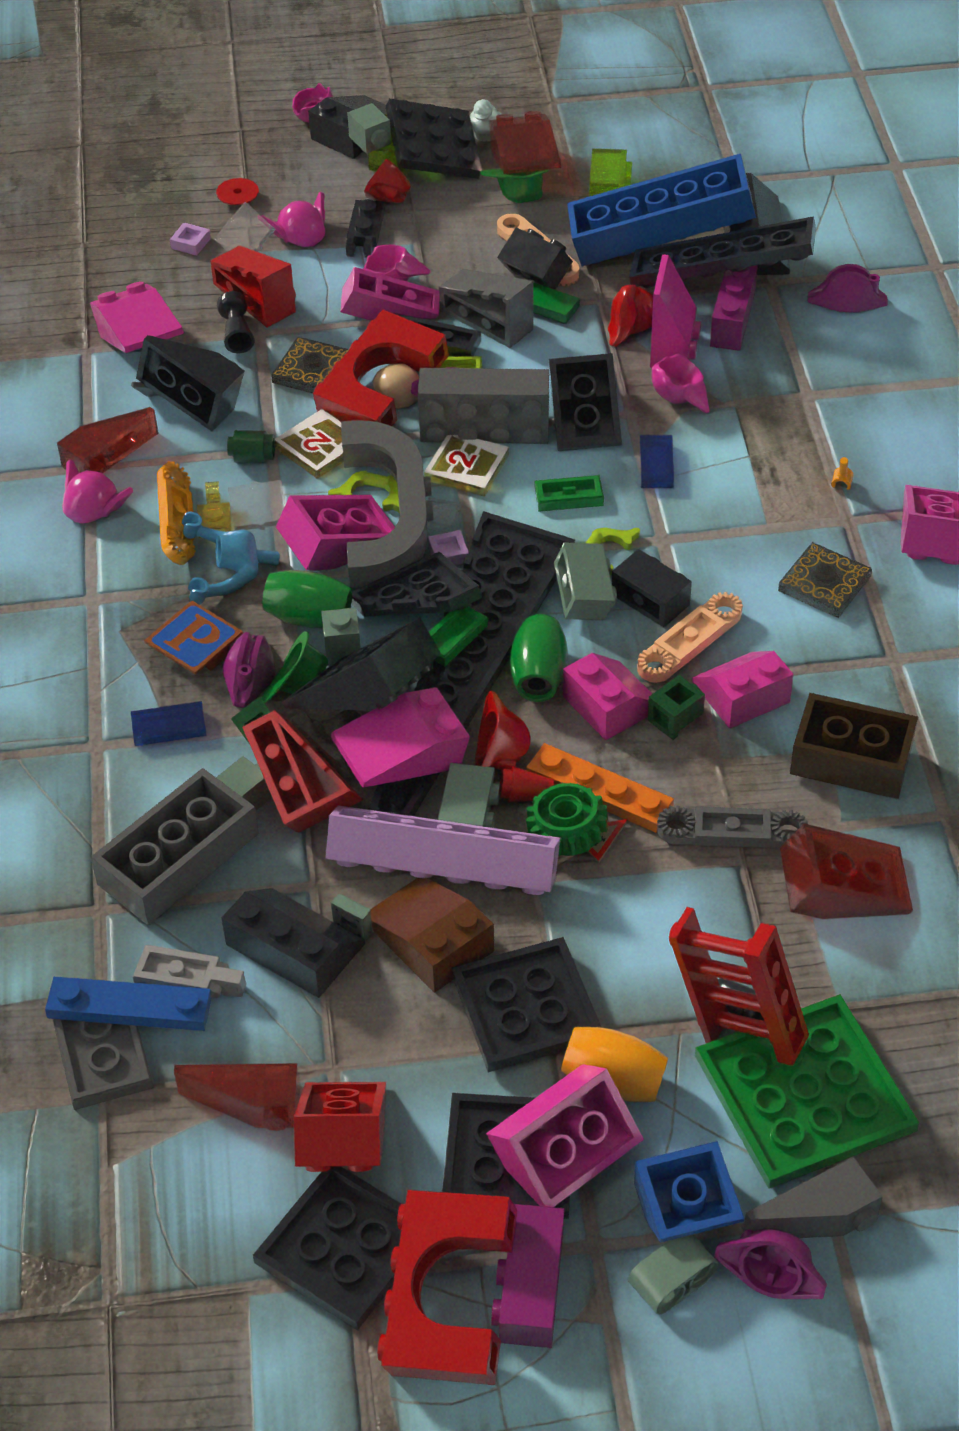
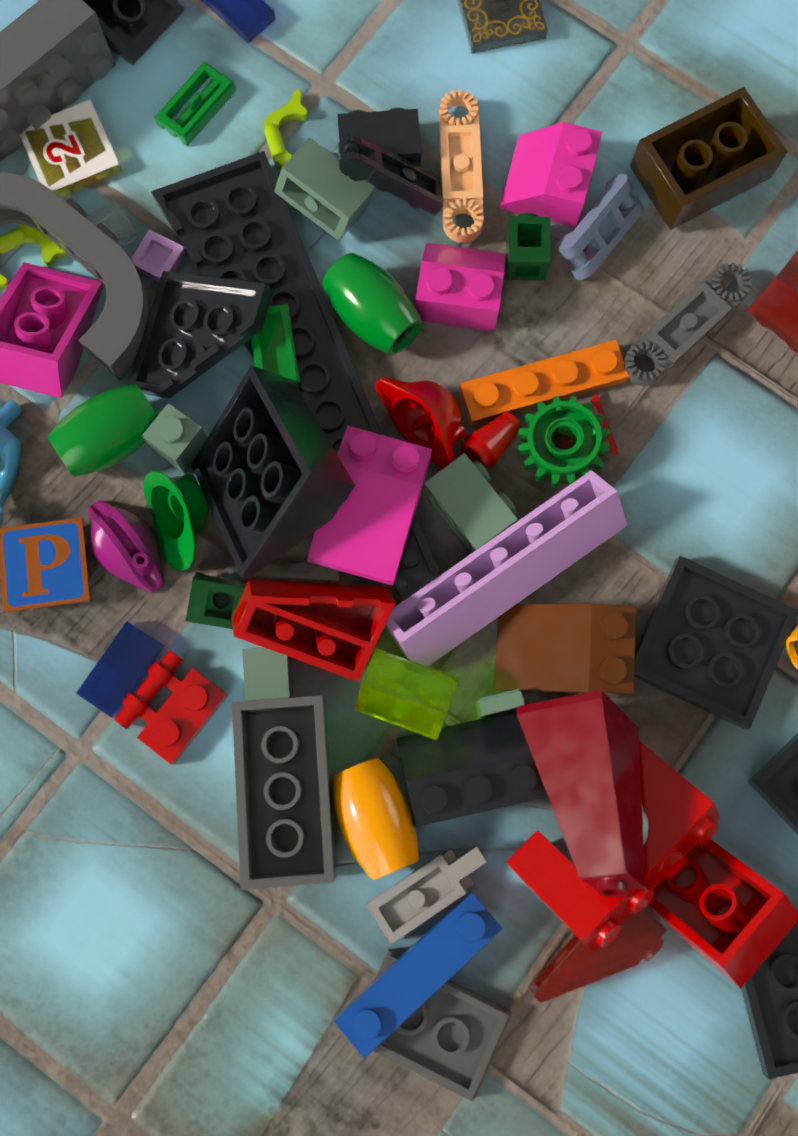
camera: 50 degrees left, 30 degrees up
(166, 773) = (182, 714): none -> red plate
(202, 901) = (375, 818): none -> light orange piece
(304, 860) = (406, 693): none -> clear neon green brick
(345, 968) = (593, 780): none -> dark red slope
(367, 1045) = (677, 821): none -> red arch
(632, 599) = (390, 173): none -> black hinge
(738, 731) = (601, 228): none -> sand blue plate

